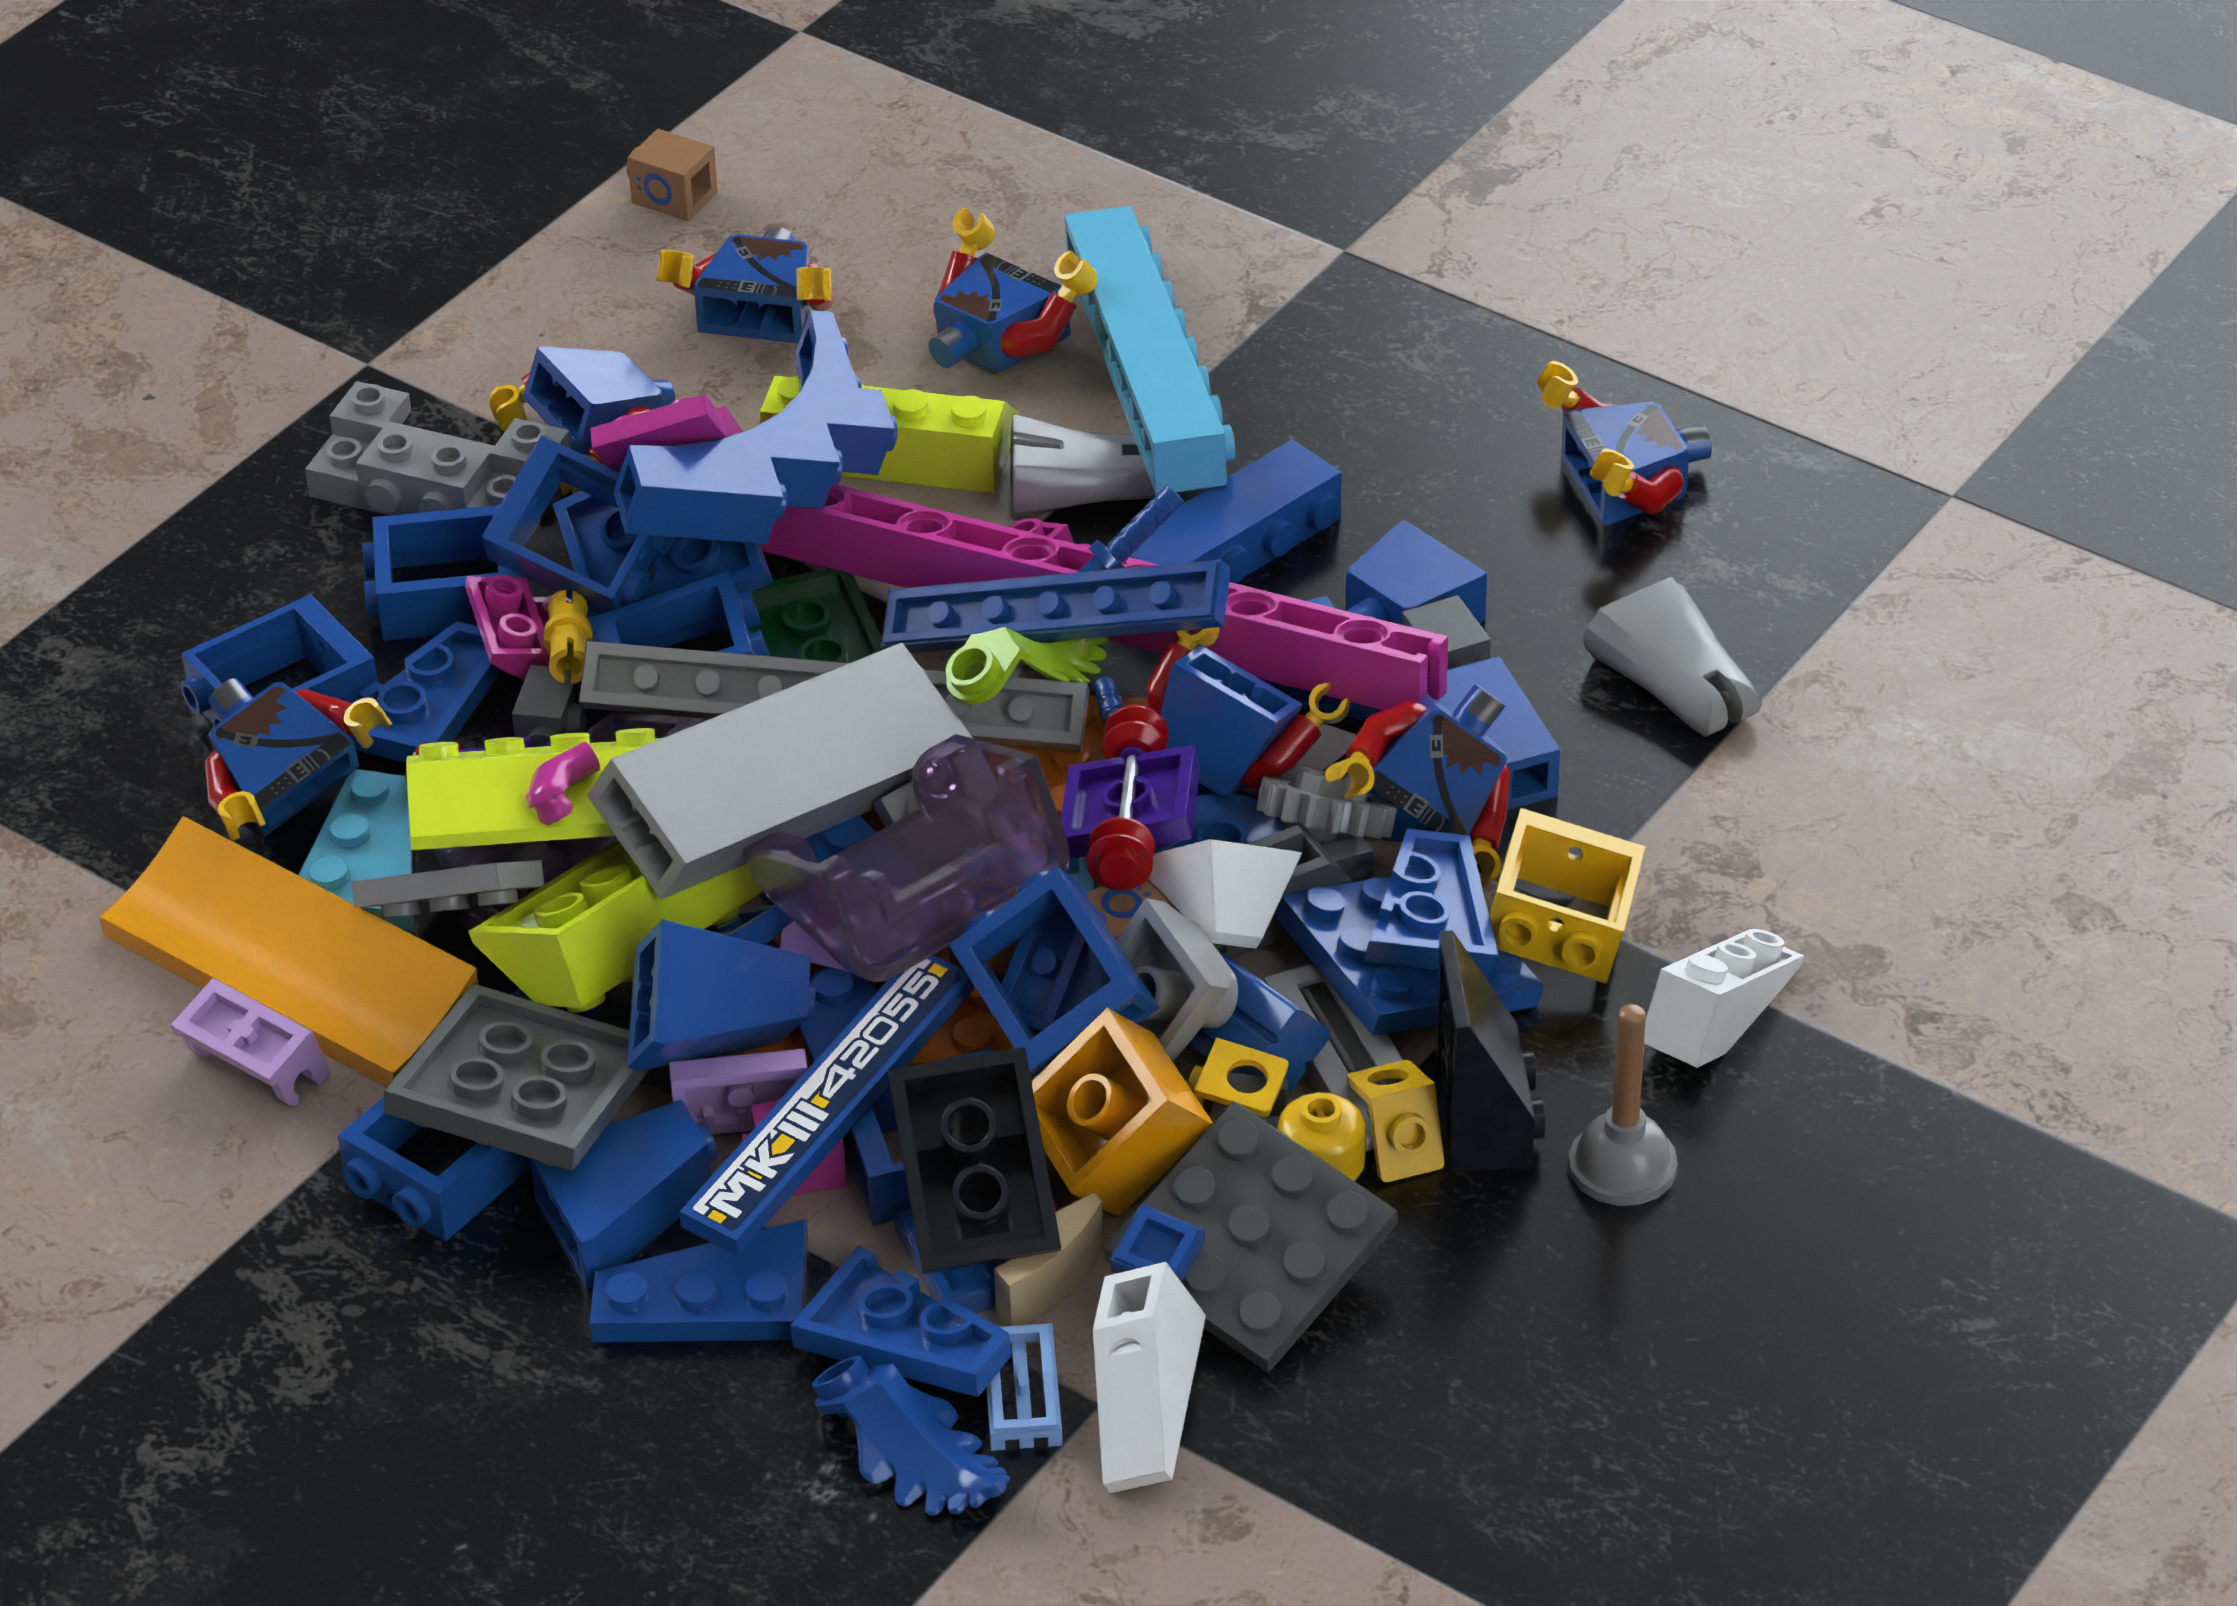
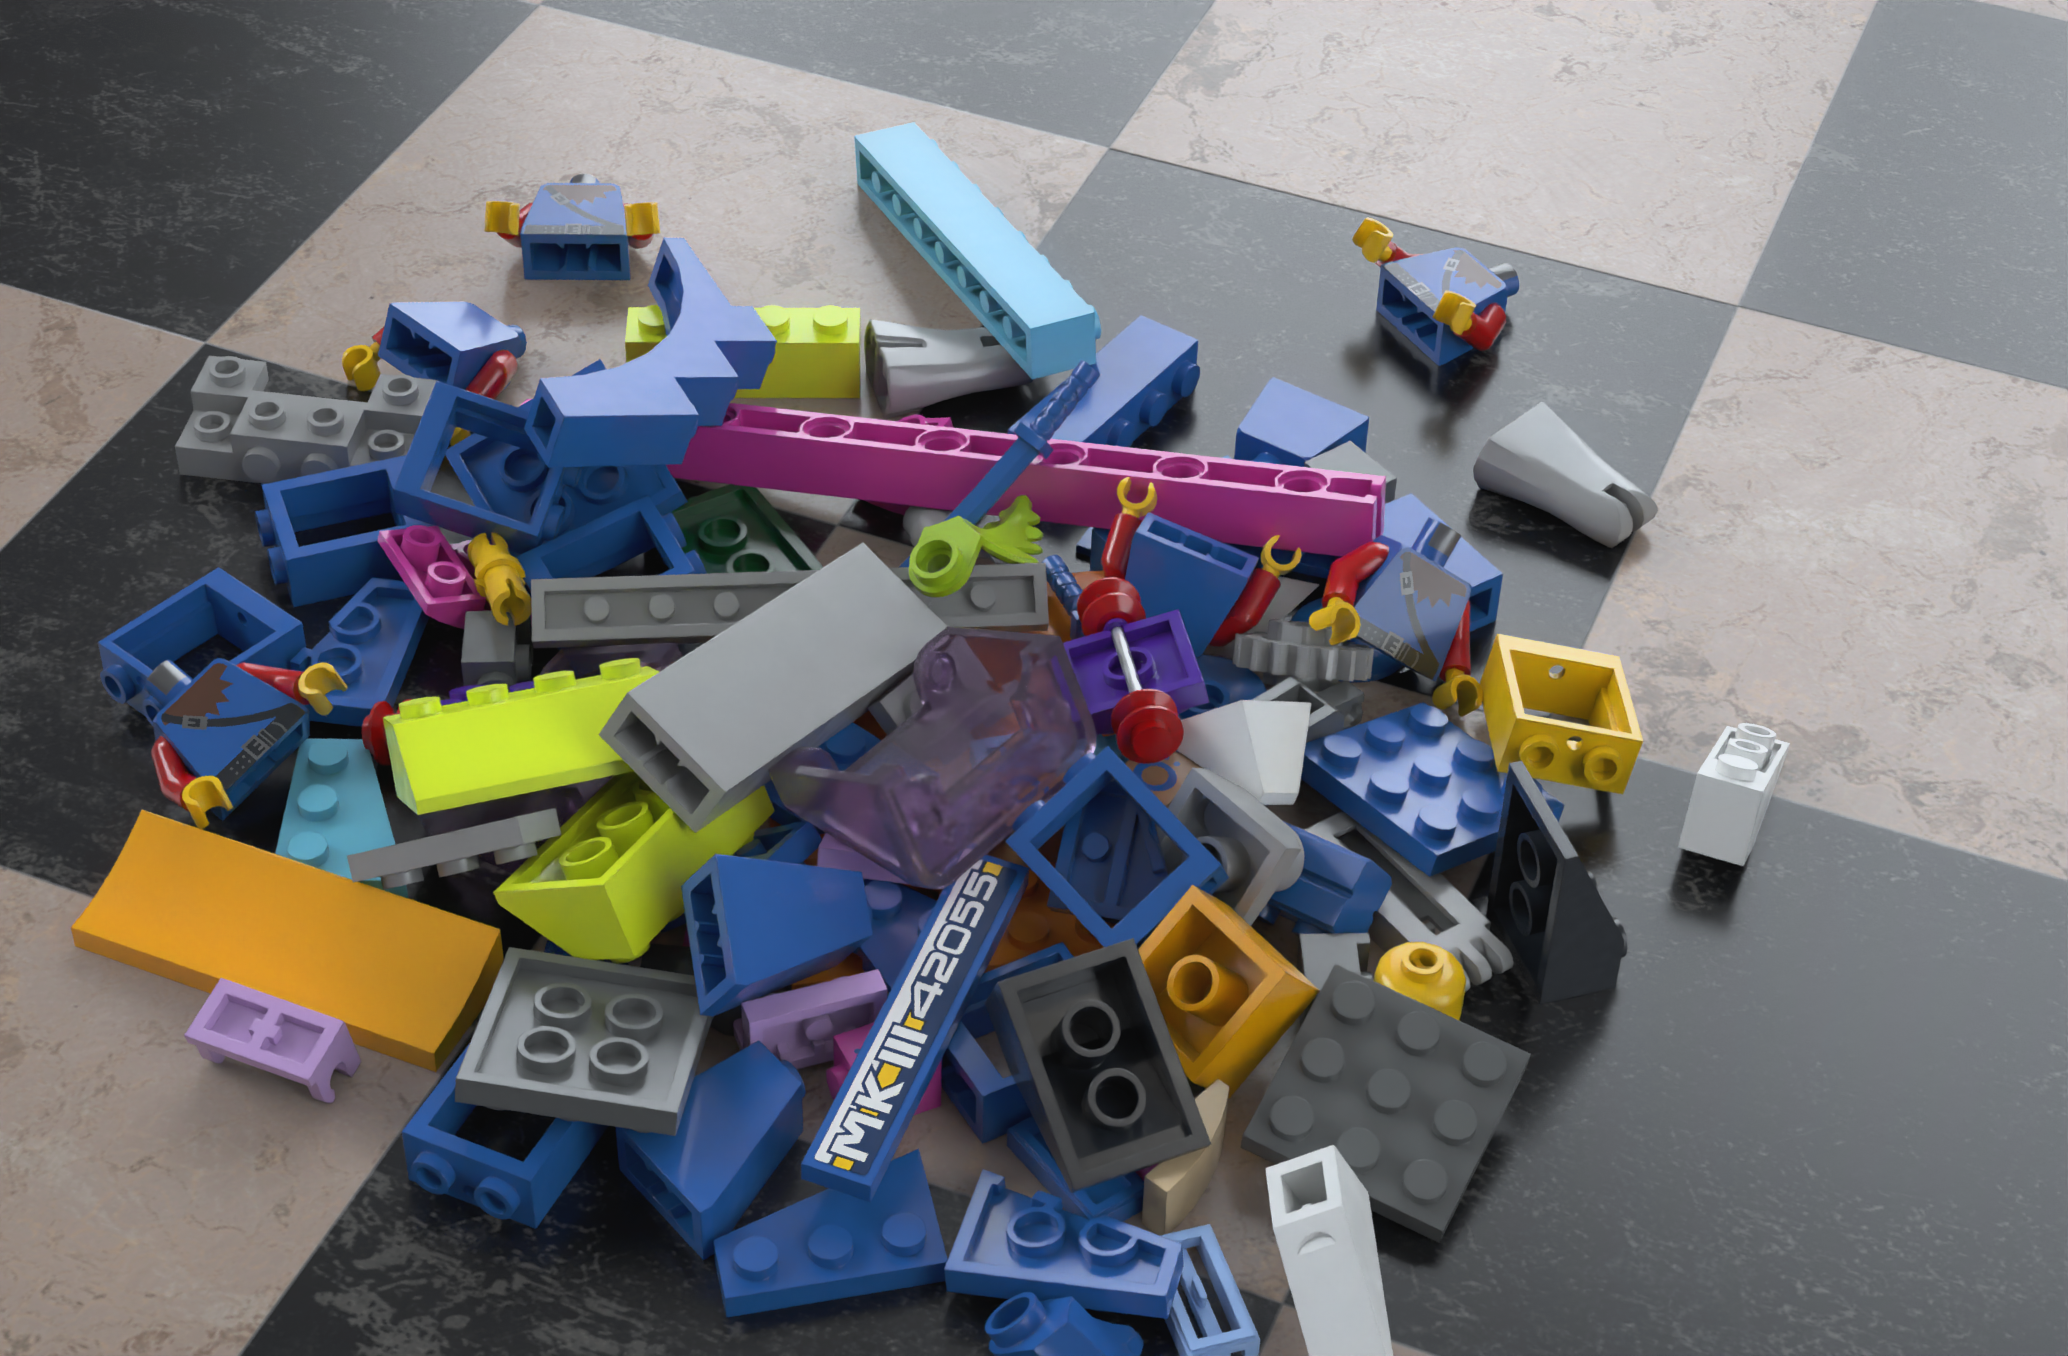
camera: 15 degrees left, 0 degrees up
(557, 775) = (555, 723): dark pink arm -> none
(671, 425) = (579, 353): dark pink slope -> none
(672, 174) = (461, 137): medium nougat brick -> none
(997, 309) = (819, 229): torso -> none
(1060, 605) = (992, 491): blue tile -> none
(1156, 1239) = (1305, 1124): blue tile -> none
(1212, 1085) = (1299, 942): yellow bracket -> none
(1401, 1119) = (1490, 954): yellow bracket -> none
(1429, 892) = (1448, 739): blue wing -> none
(1623, 1152) = (1703, 959): light grey piece -> none

